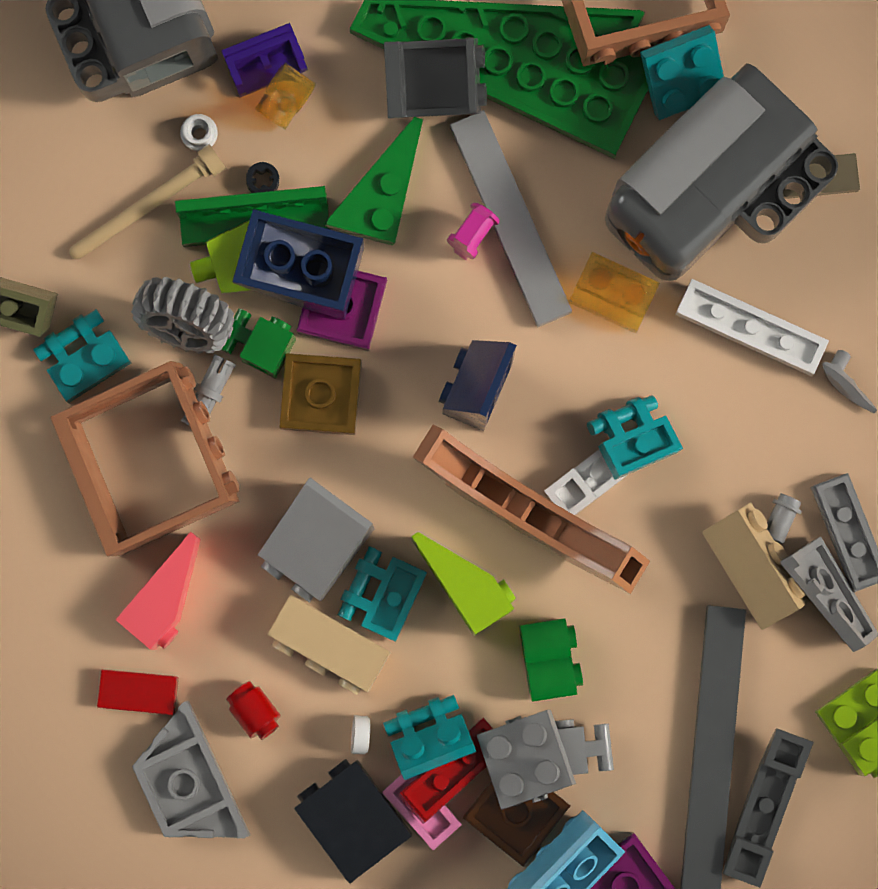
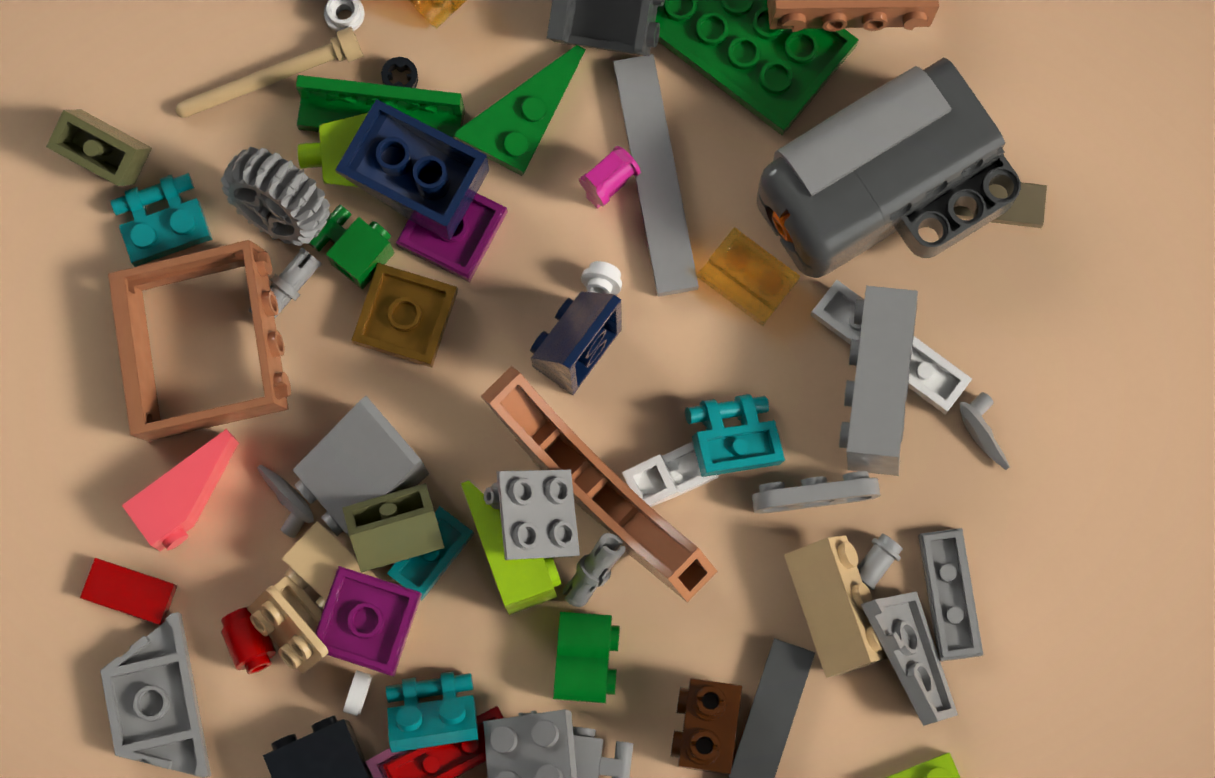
camera: 15 degrees right, 5 degrees down
(260, 579) = (290, 499): none -> light grey bar
(292, 689) = (291, 621): none -> tan bracket
(355, 672) = (367, 620): none -> magenta tile
(360, 586) = (393, 527): none -> olive brick
(483, 547) = (535, 513): none -> light grey hinge
(486, 324) = (602, 278): none -> white plate
(541, 582) = (593, 570): none -> light grey pin
(669, 694) = (708, 726): none -> reddish brown brick
(682, 71) = (873, 53): teal plate -> none
(715, 470) = (815, 493): none -> light grey plate
(753, 360) = (880, 380): none -> light grey wedge

